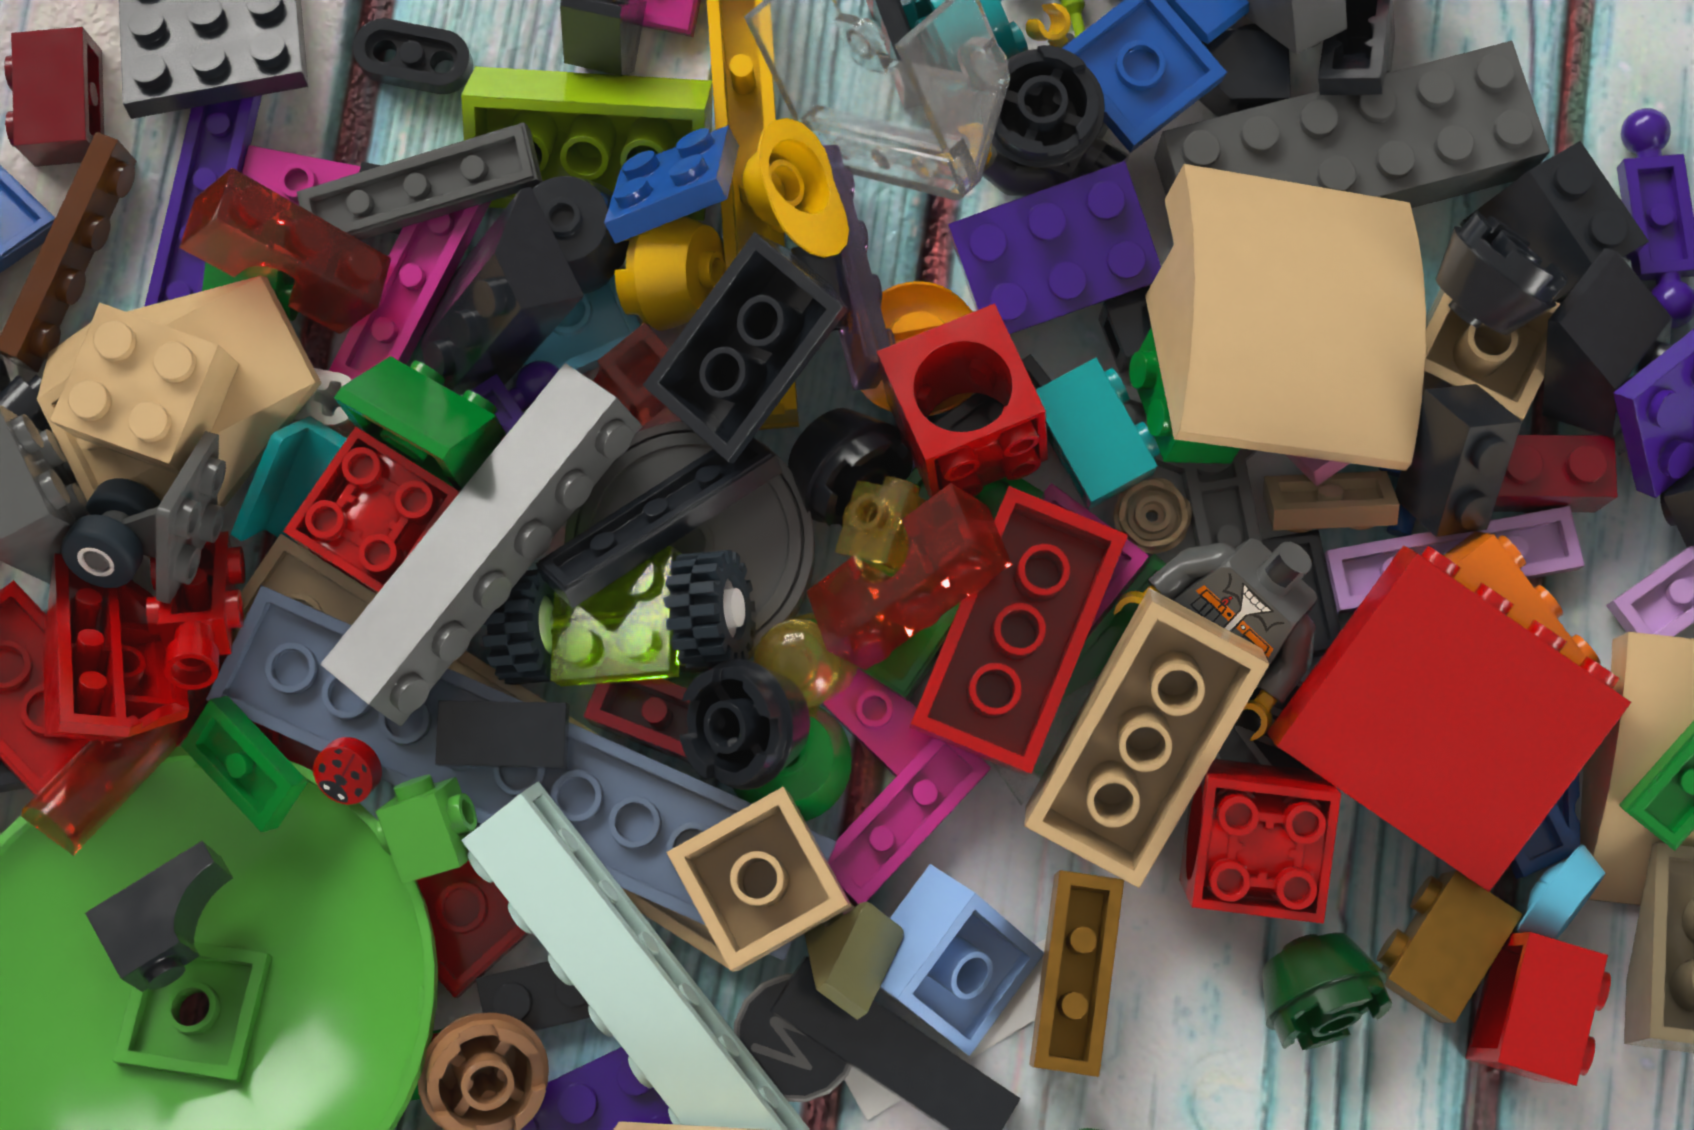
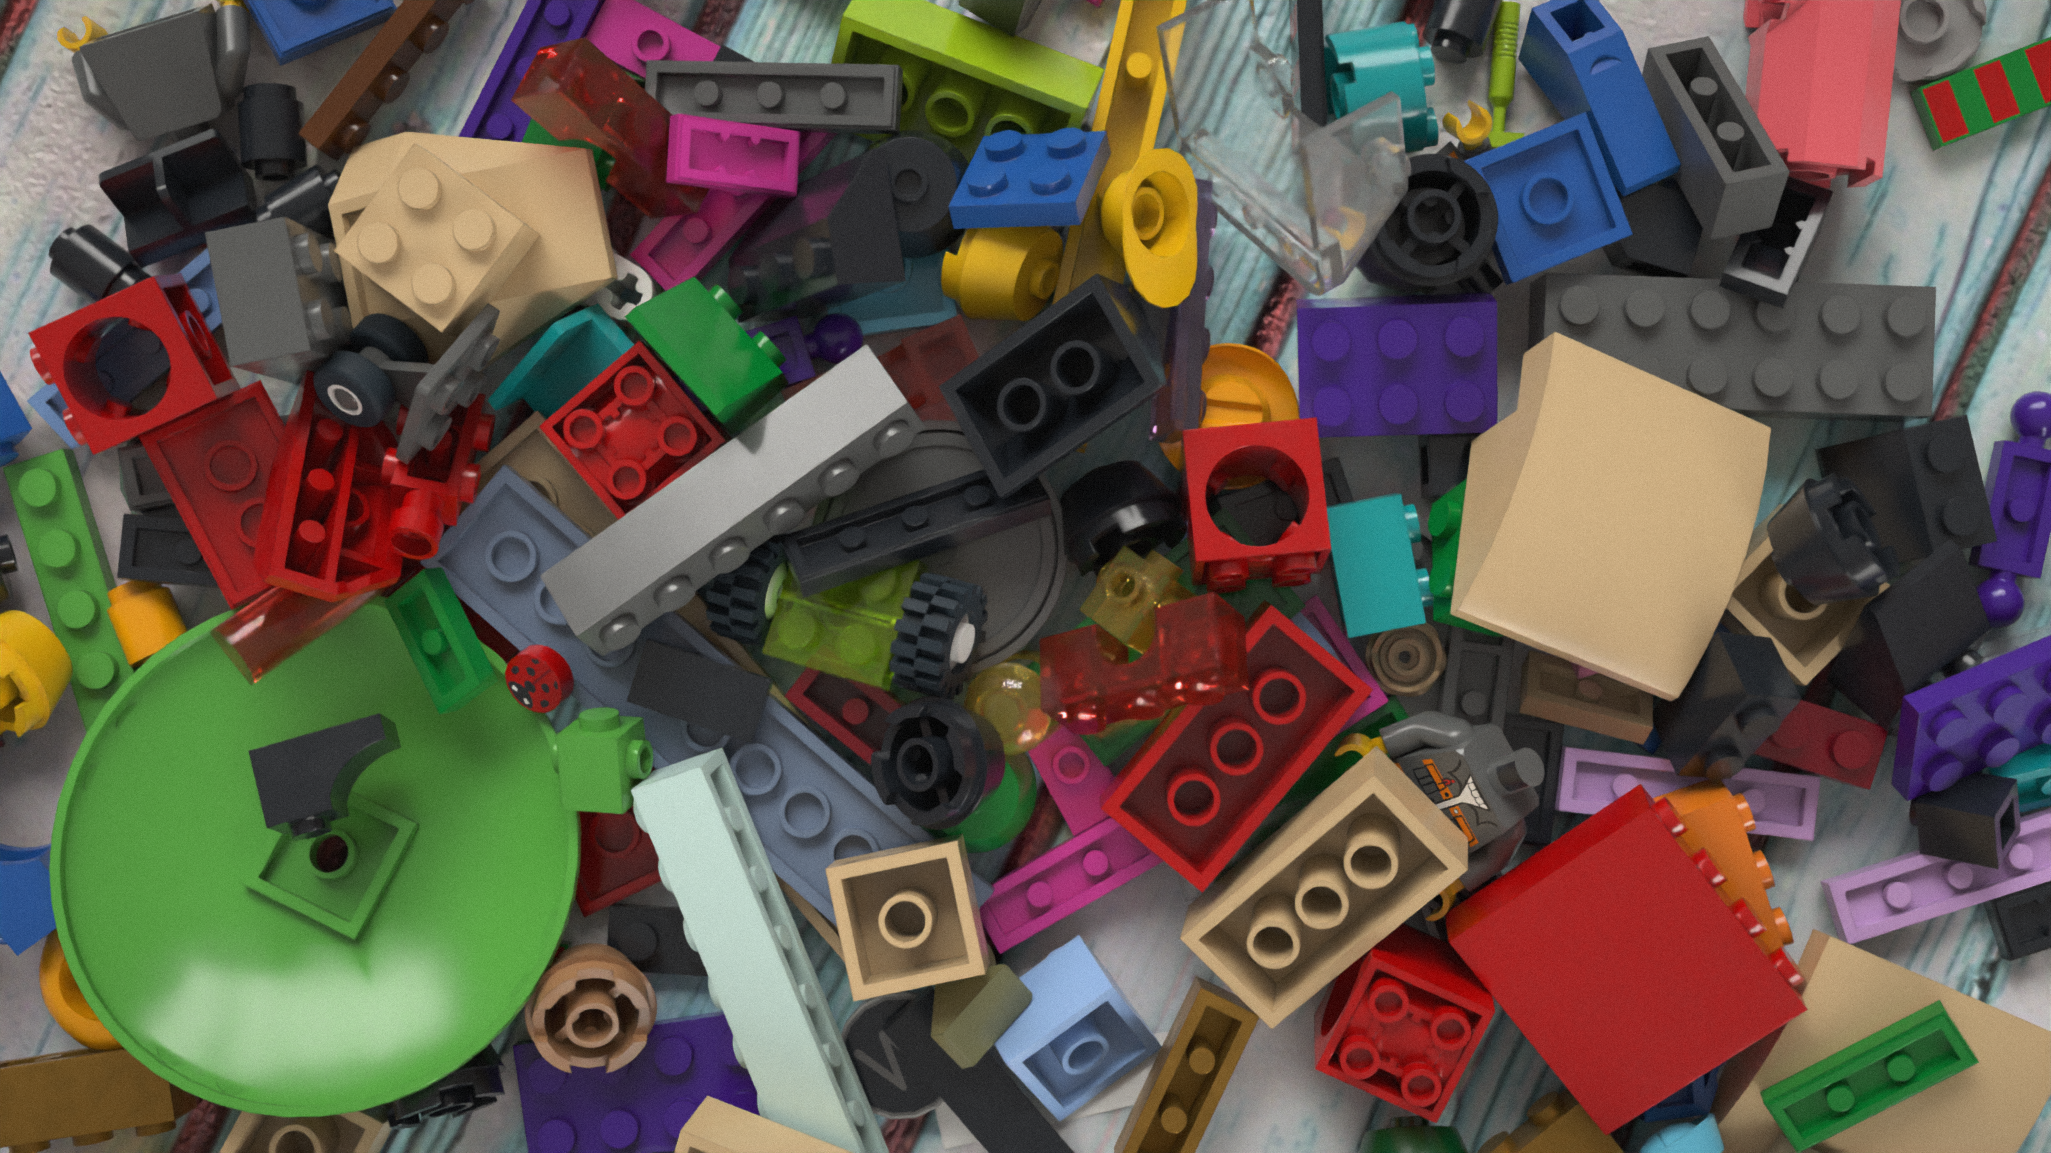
camera: 15 degrees right, 10 degrees up
(397, 244) = (733, 156): none -> dark pink plate

